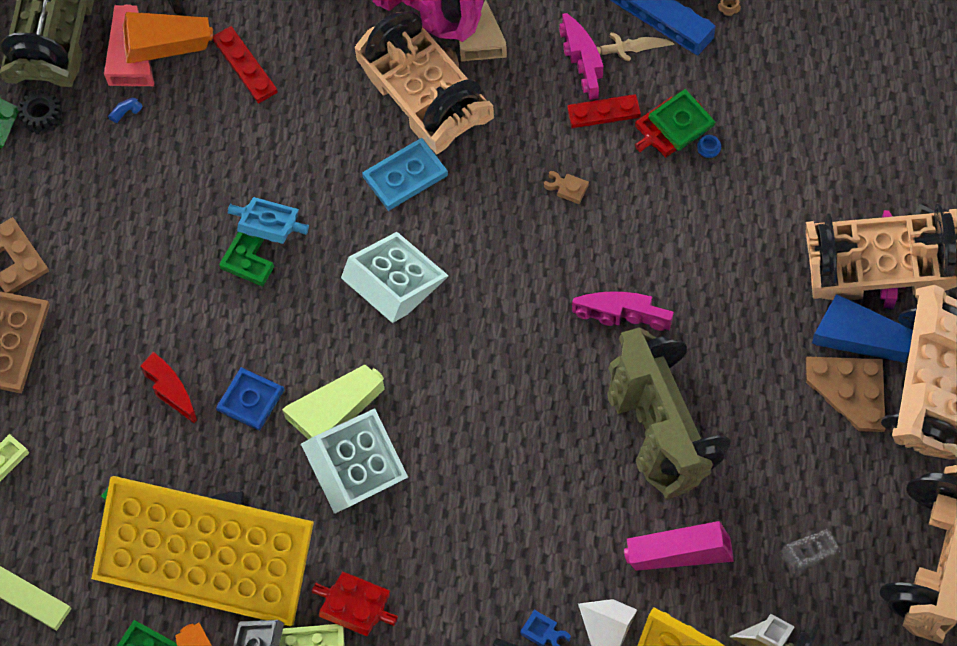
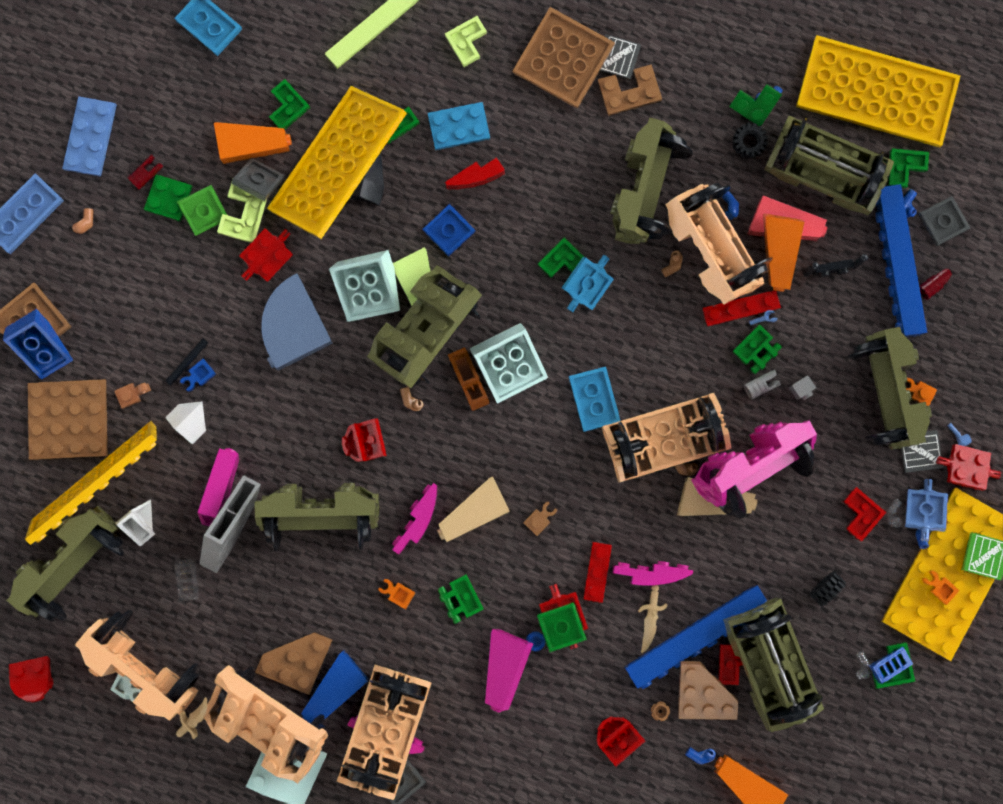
camera: 100 degrees right, 20 degrees up
(110, 432) = (458, 126): none -> dark azure plate
(126, 190) = (649, 154): none -> olive piece
(205, 69) = (717, 242): none -> light nougat piece
(214, 143) = (675, 264): none -> medium nougat arm
(249, 39) = (763, 318): none -> medium blue hand
(286, 40) = (752, 345): none -> green plate
(327, 18) = (759, 386): none -> light grey hinge
(412, 369) = (424, 326): none -> olive piece
(430, 312) = (468, 379): none -> dark orange slope
(435, 537) = (292, 325): none -> sand blue brick
(483, 369) = (410, 402): none -> medium nougat arm
(552, 402) = (364, 441): none -> red slope
(587, 252) = (474, 512): none -> tan slope
(690, 231) = (466, 597): none -> green plate
(719, 301) = (399, 594): none -> orange plate
(738, 505) = (228, 524): none -> light grey brick
(749, 161) = (505, 667): none -> dark pink slope
(778, 33) = (618, 739): none -> red slope

